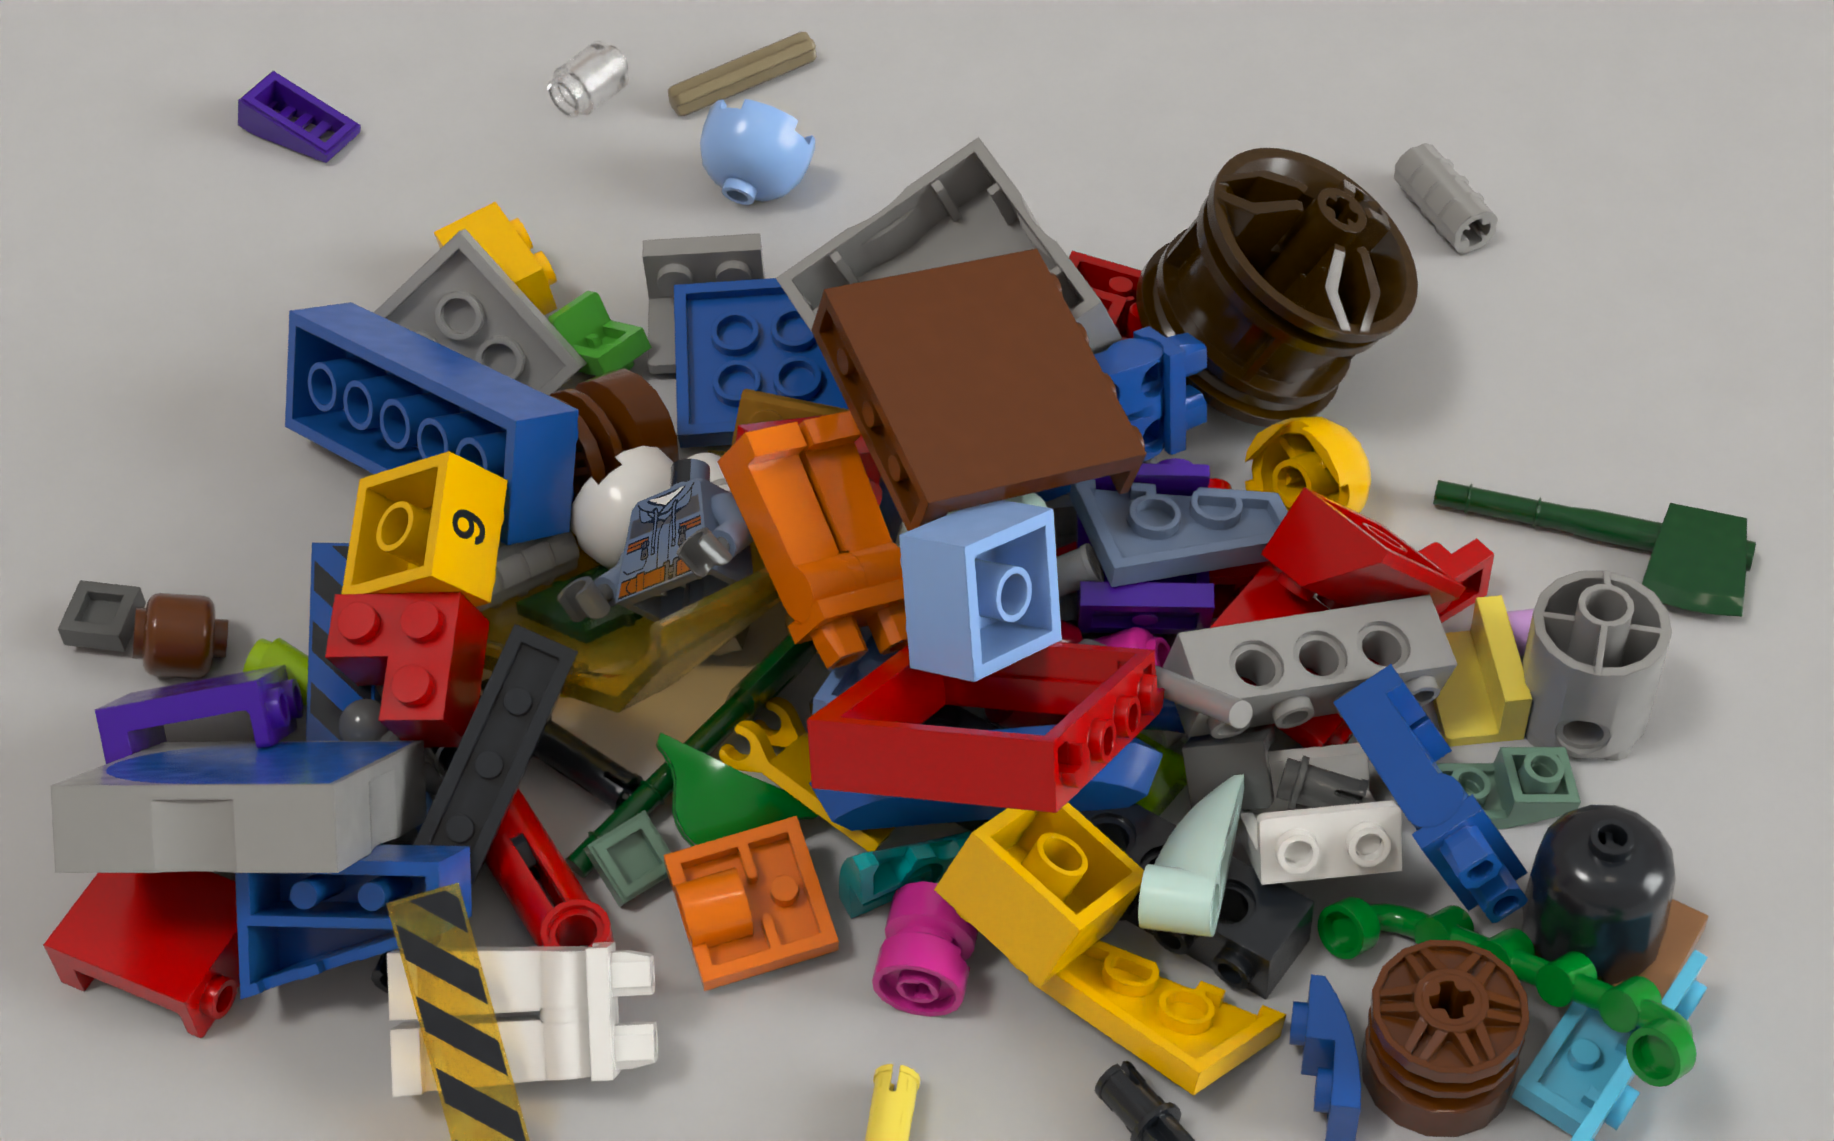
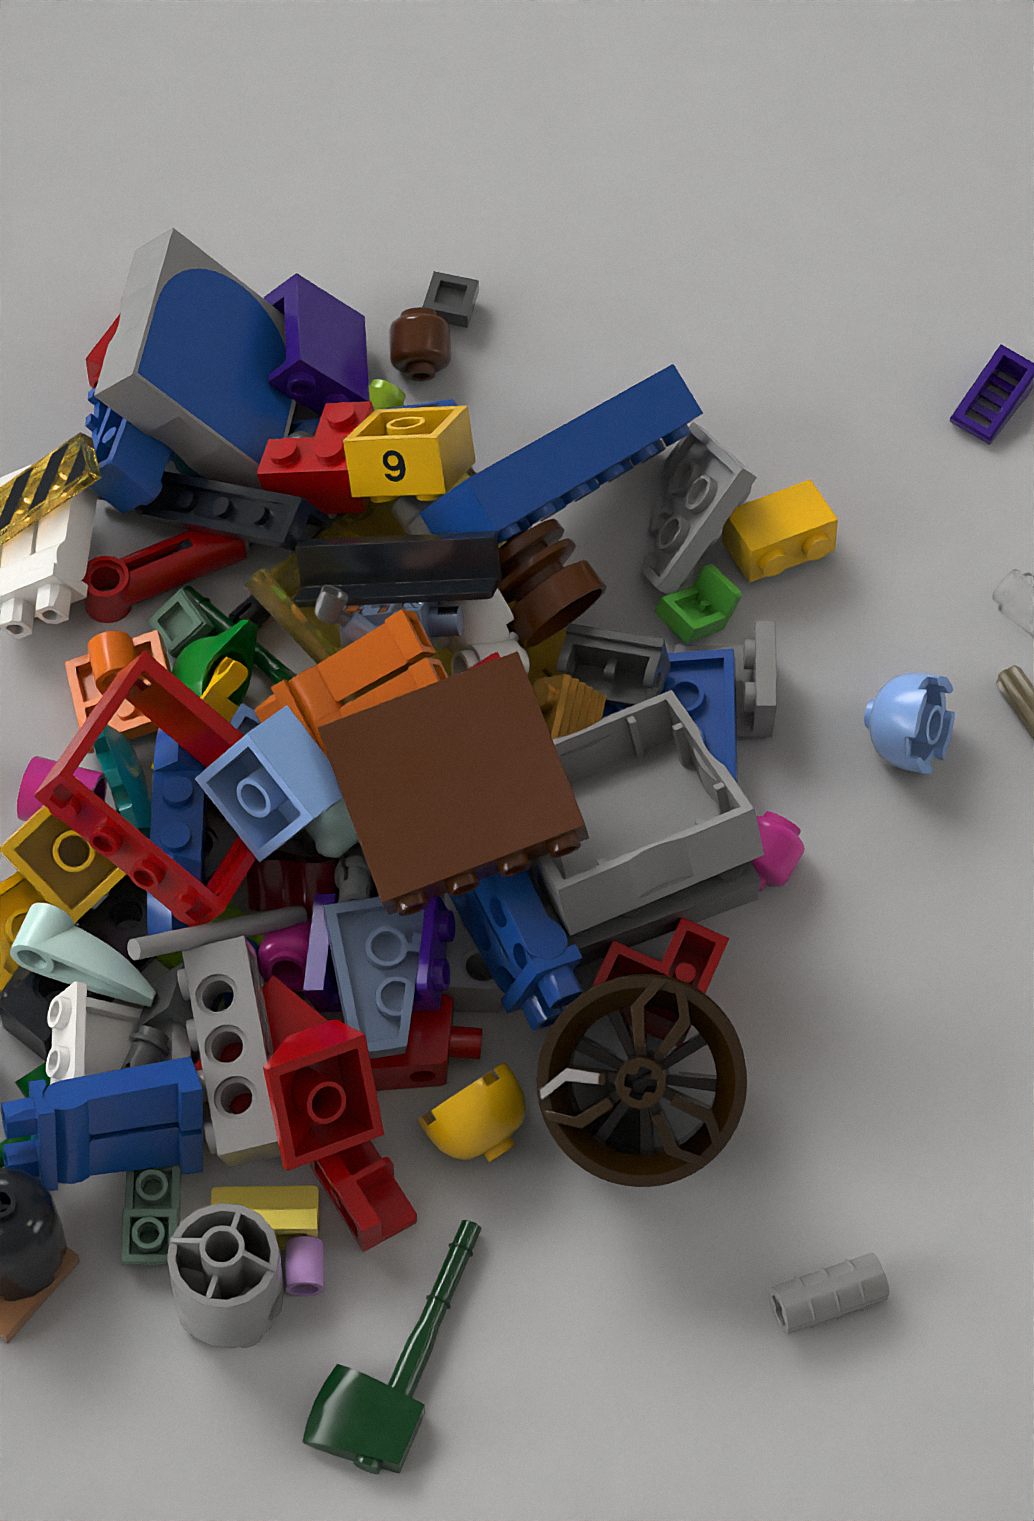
camera: 90 degrees right, 10 degrees up
(622, 532) = (401, 568): none -> black panel
(707, 383) = (615, 663): none -> dark grey hinge

